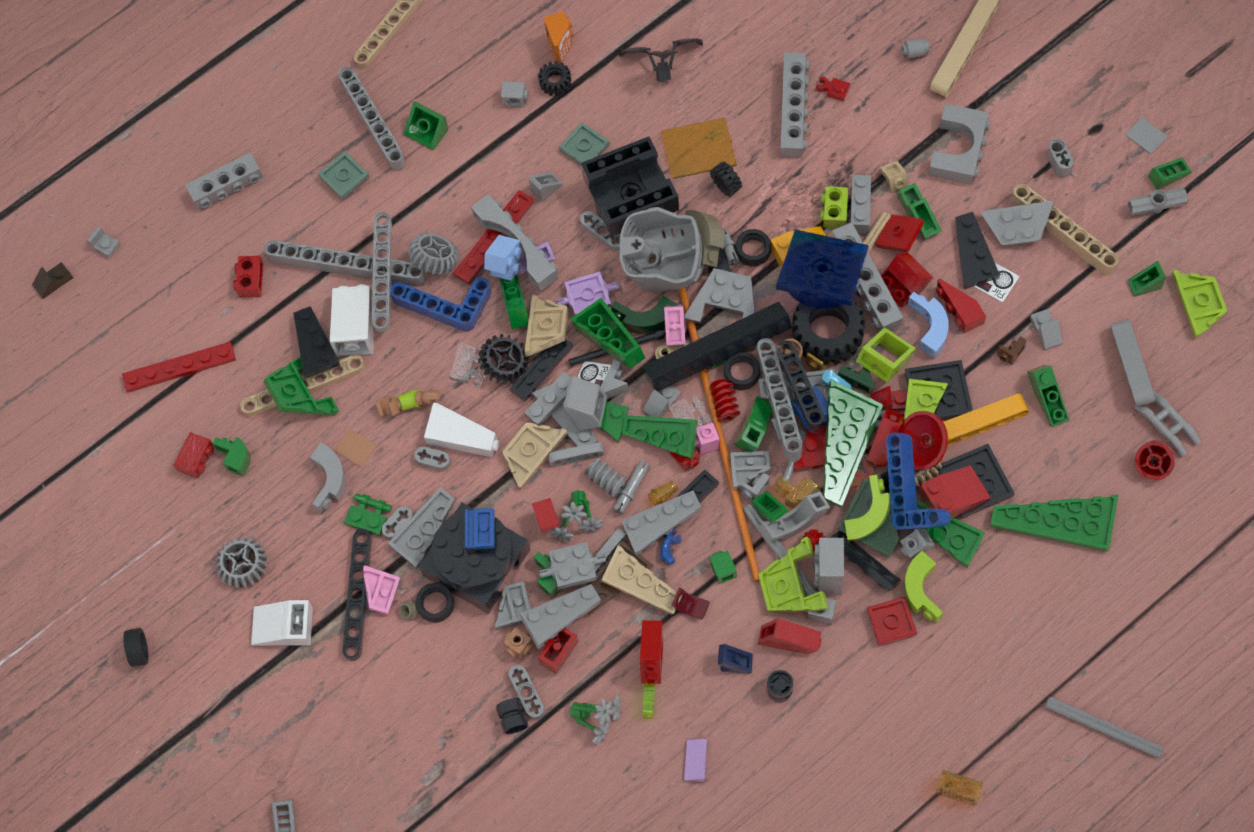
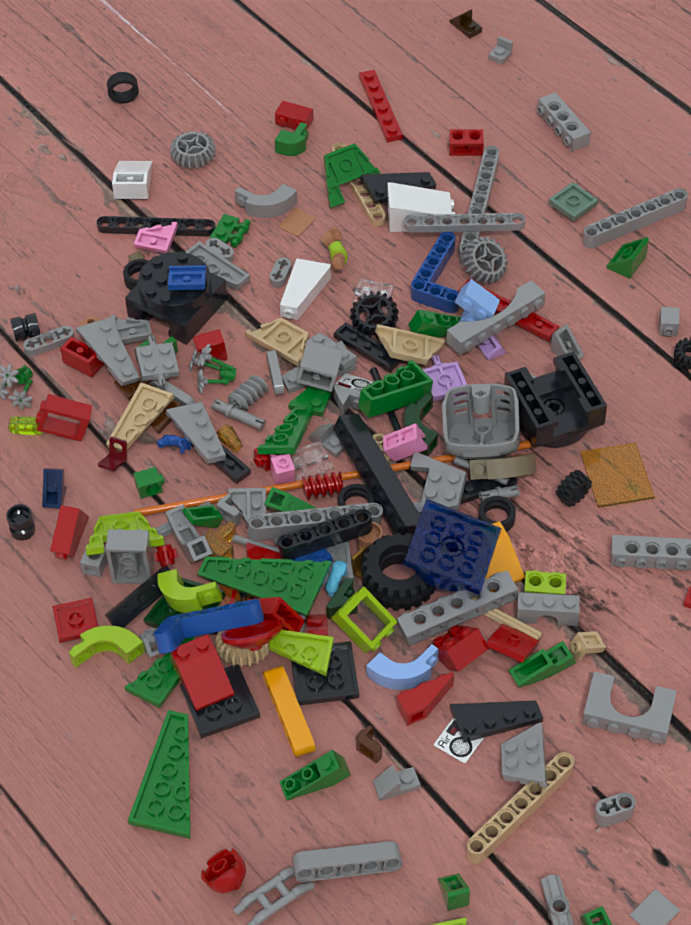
camera: 85 degrees right, 15 degrees down
(584, 144) = (615, 380): sand green tile -> none

